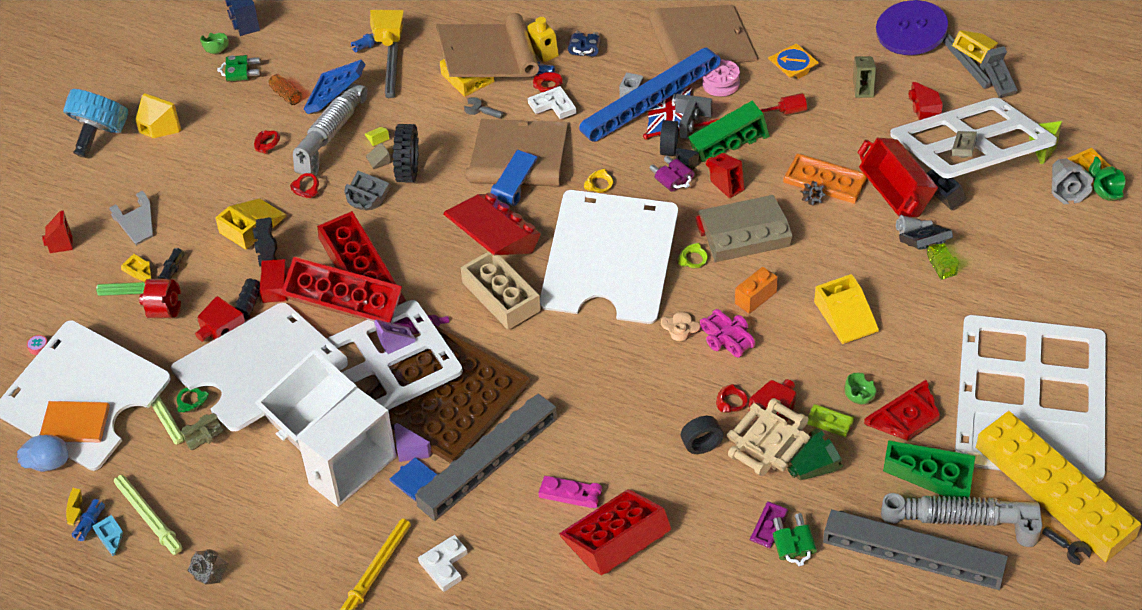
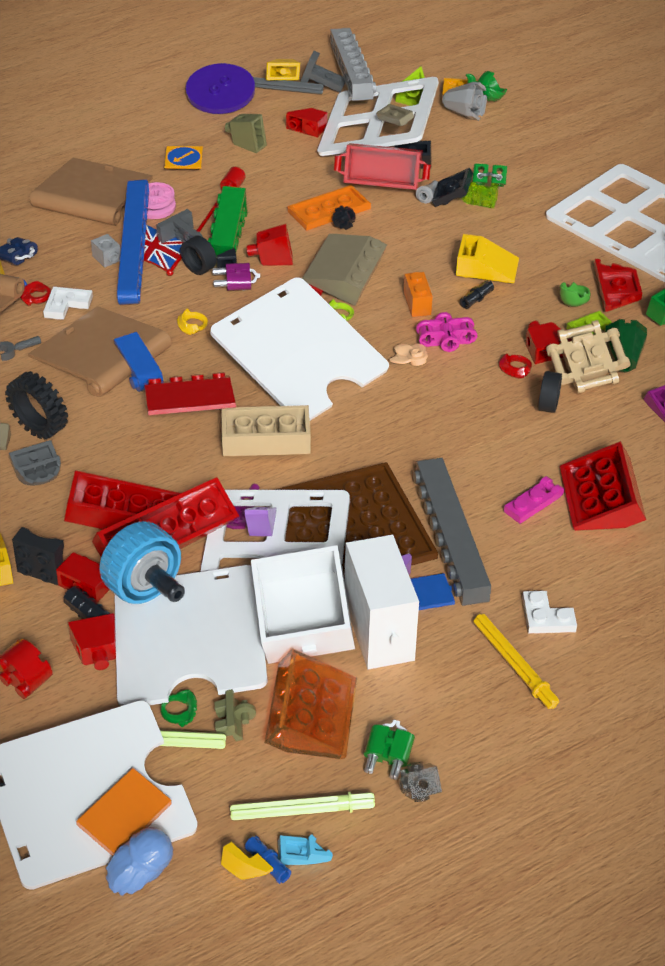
camera: 60 degrees left, 5 degrees down
(232, 533) = (388, 746): none -> green piece
(239, 469) = (311, 707): none -> clear orange slope
(282, 297) = (142, 564): none -> dark azure wheel
(799, 327) = (476, 294): none -> black pin
(964, 249) = (482, 178): none -> green piece
(1032, 80) = (352, 64): none -> light grey brick

